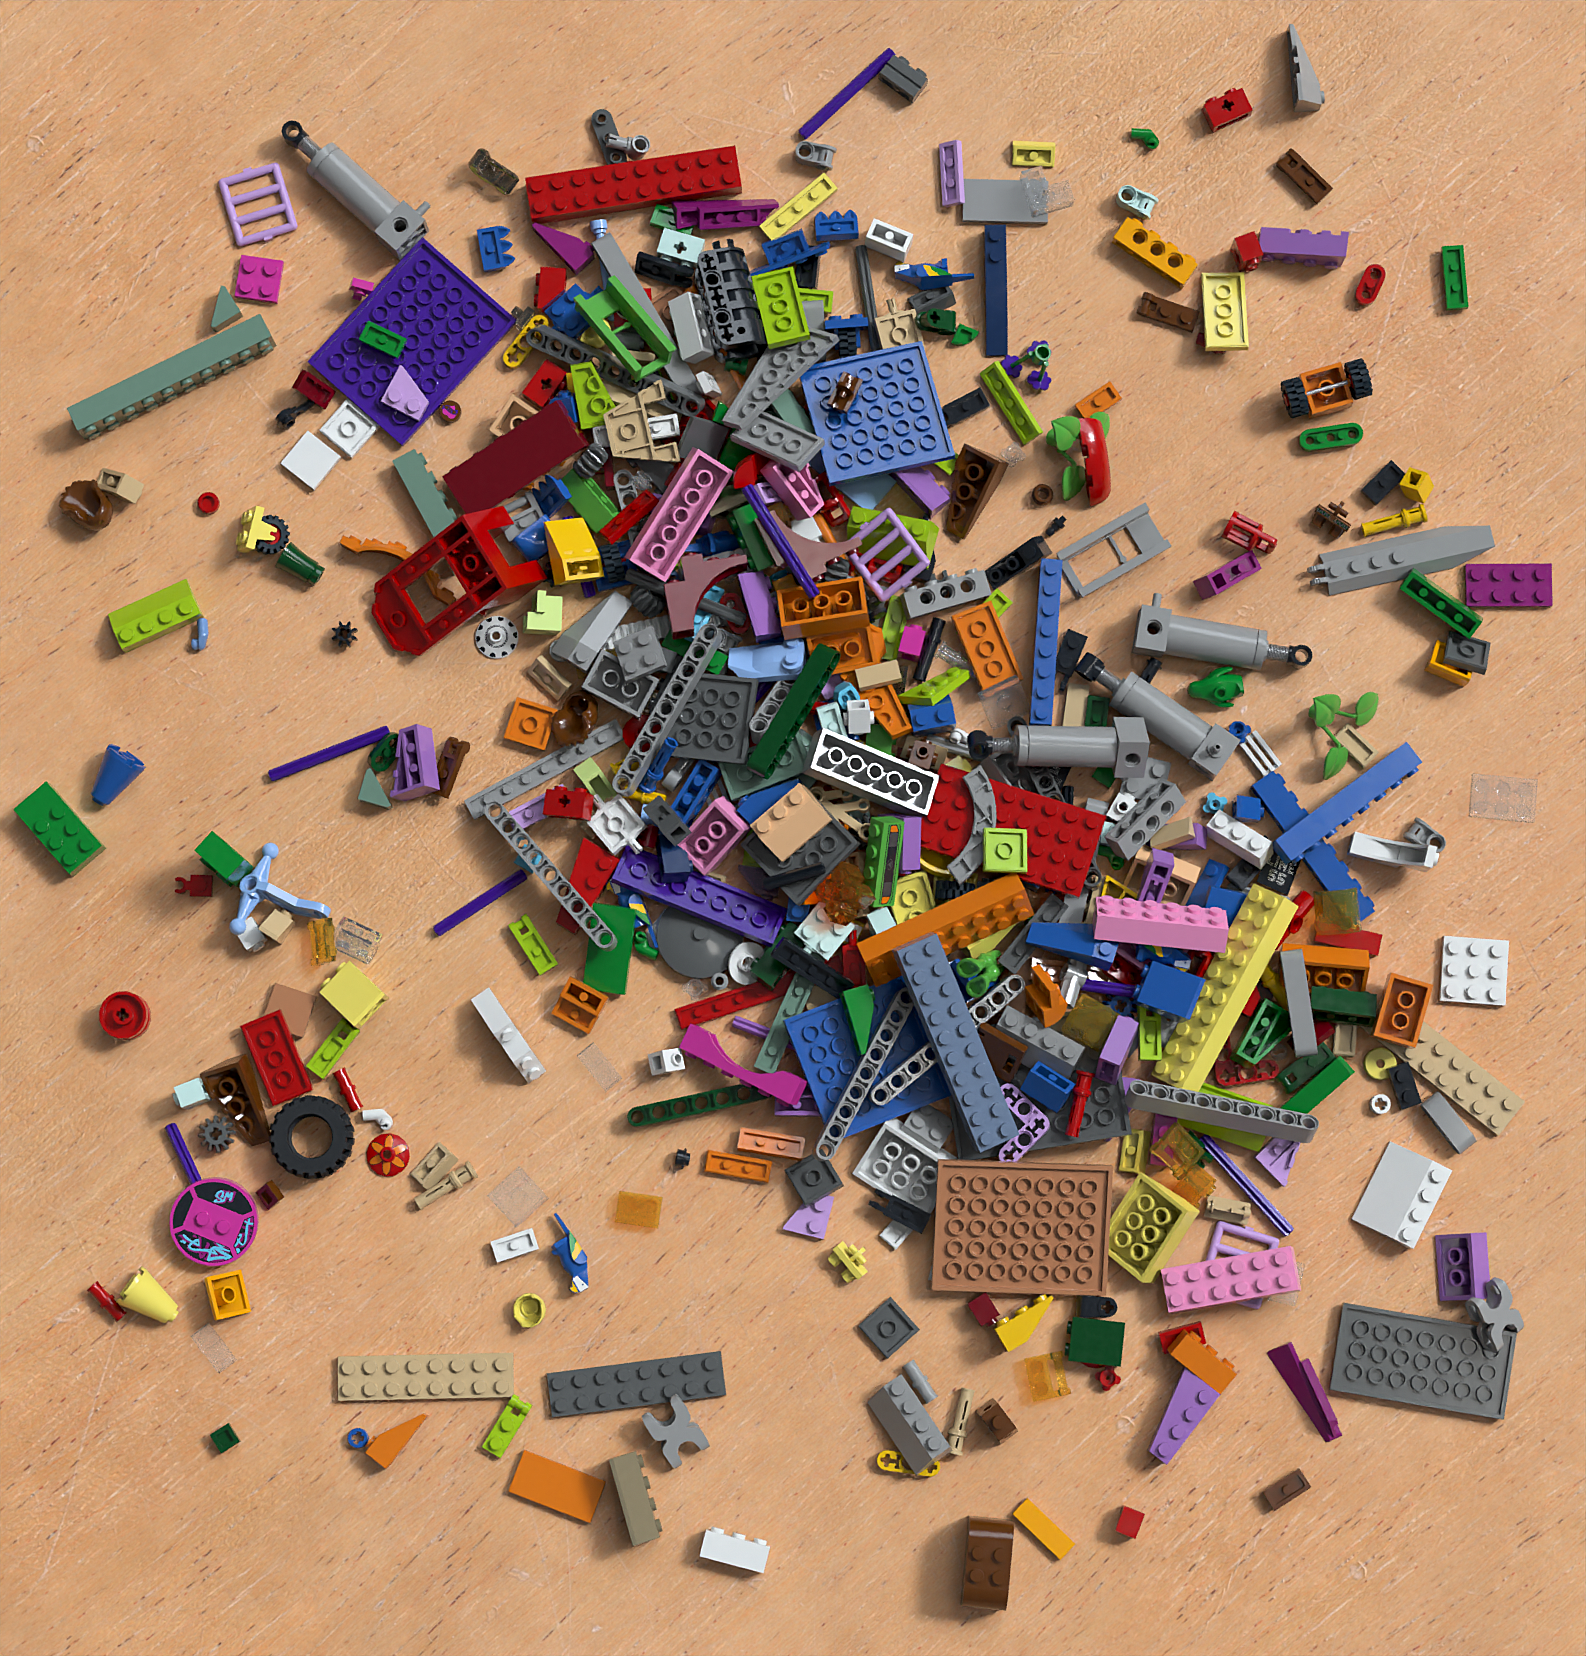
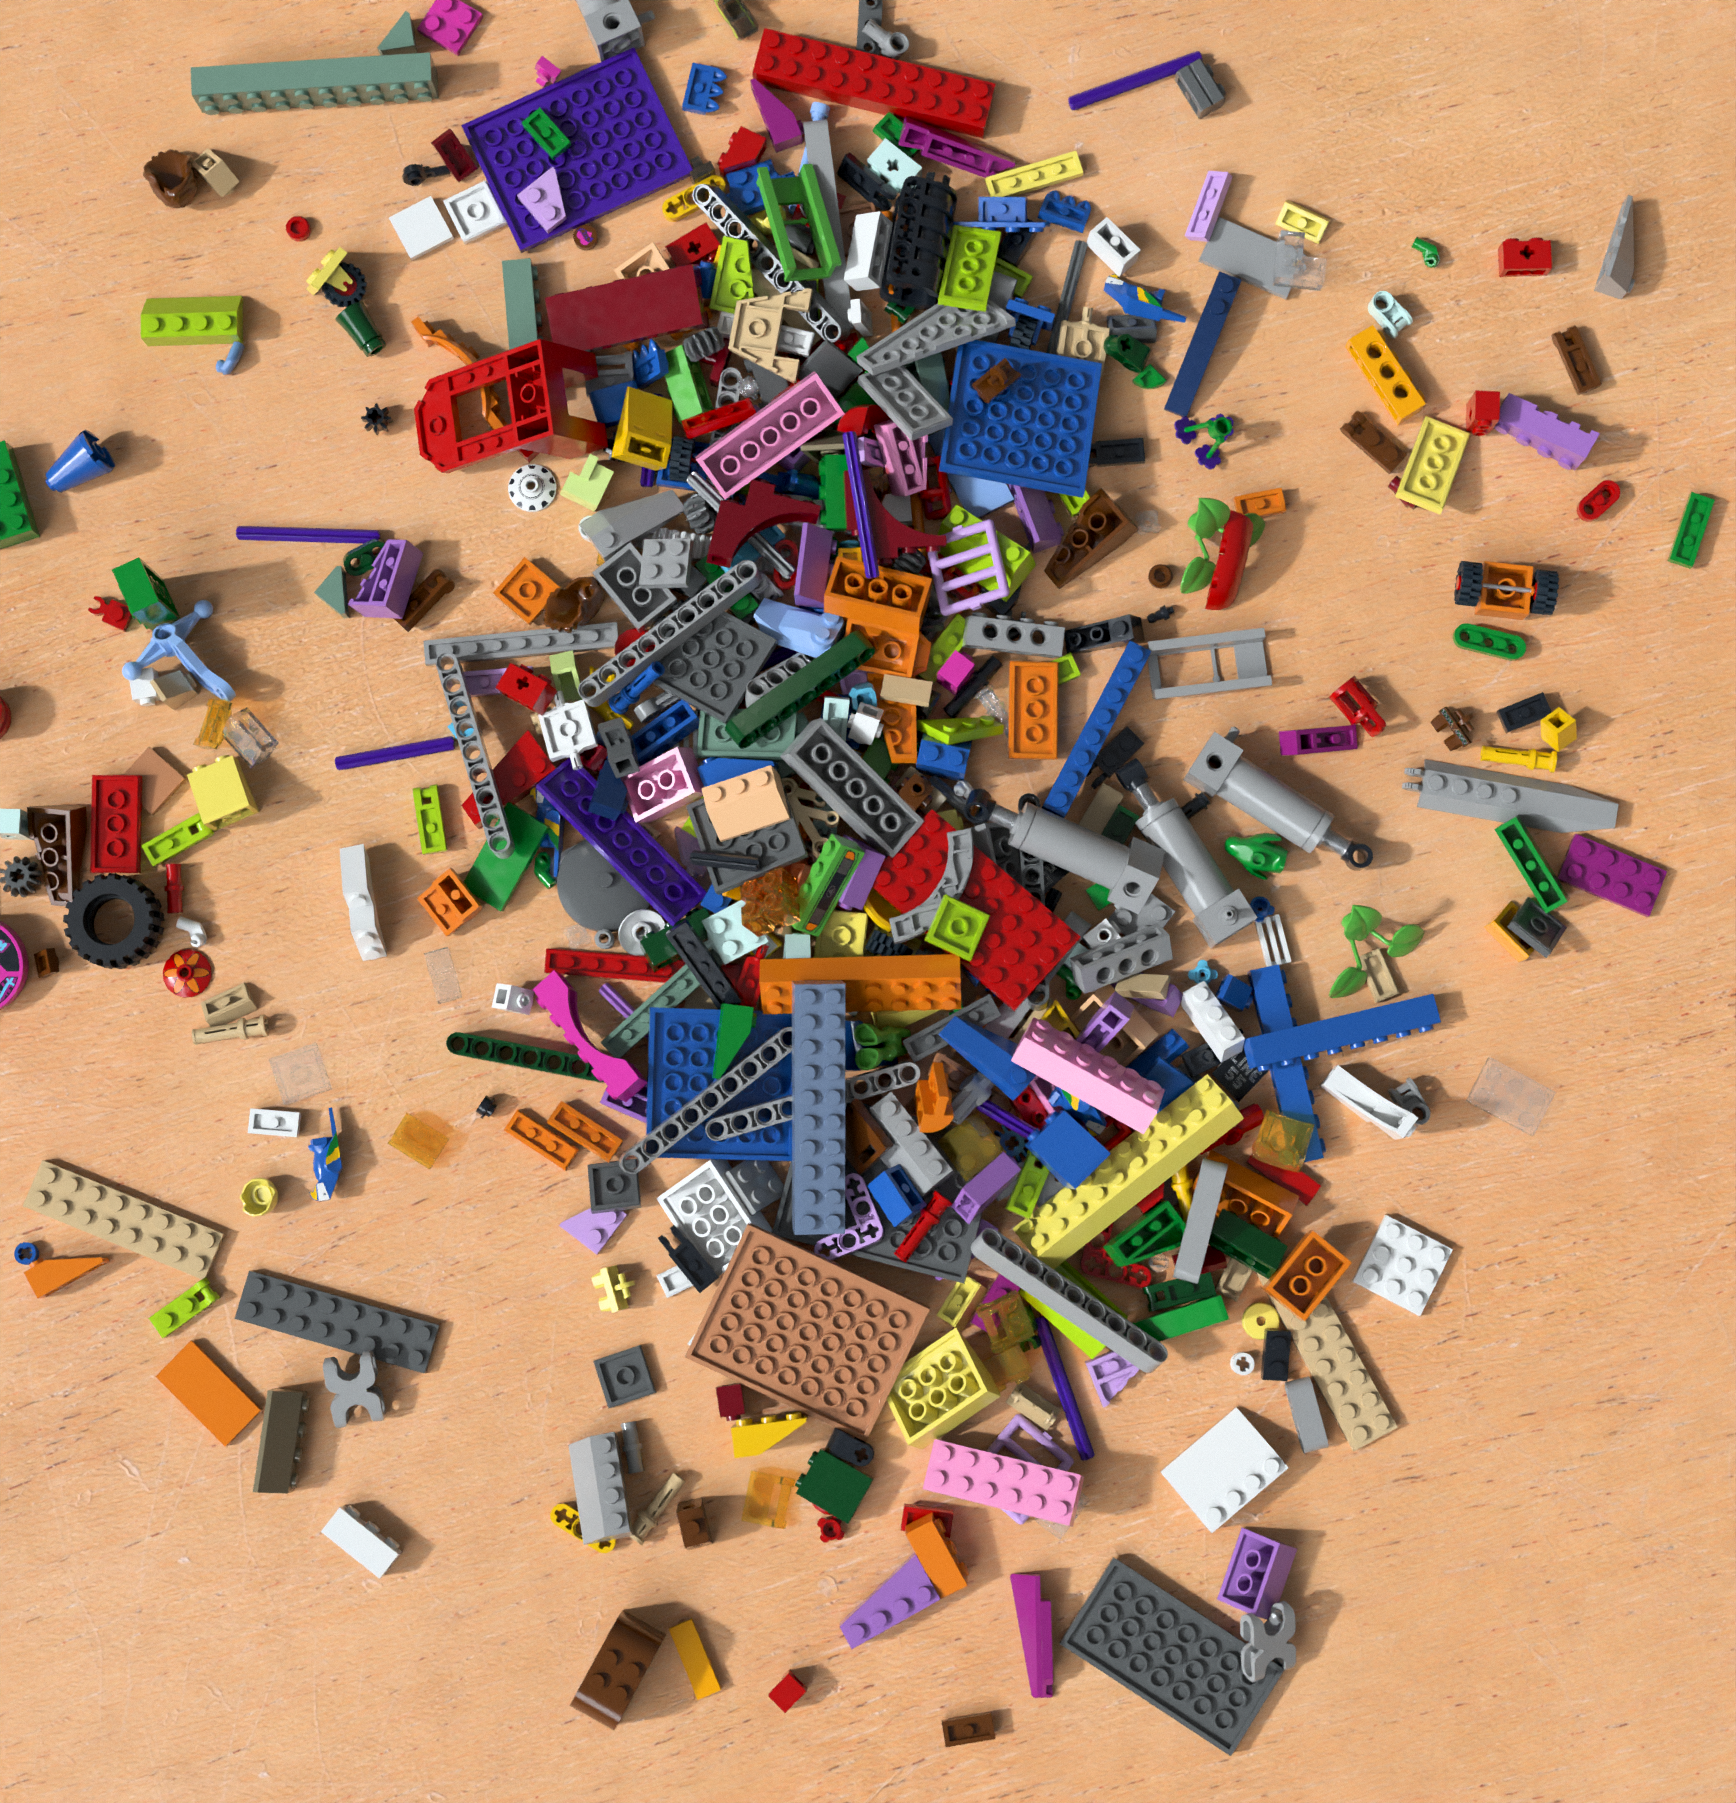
camera: 25 degrees right, 0 degrees up
(549, 678) = (566, 551): tan plate -> none
(816, 156) = (1076, 130): light grey piece -> none
(1004, 702) = (1027, 773): clear tile -> none
(1011, 402) = (1168, 467): lime plate -> none

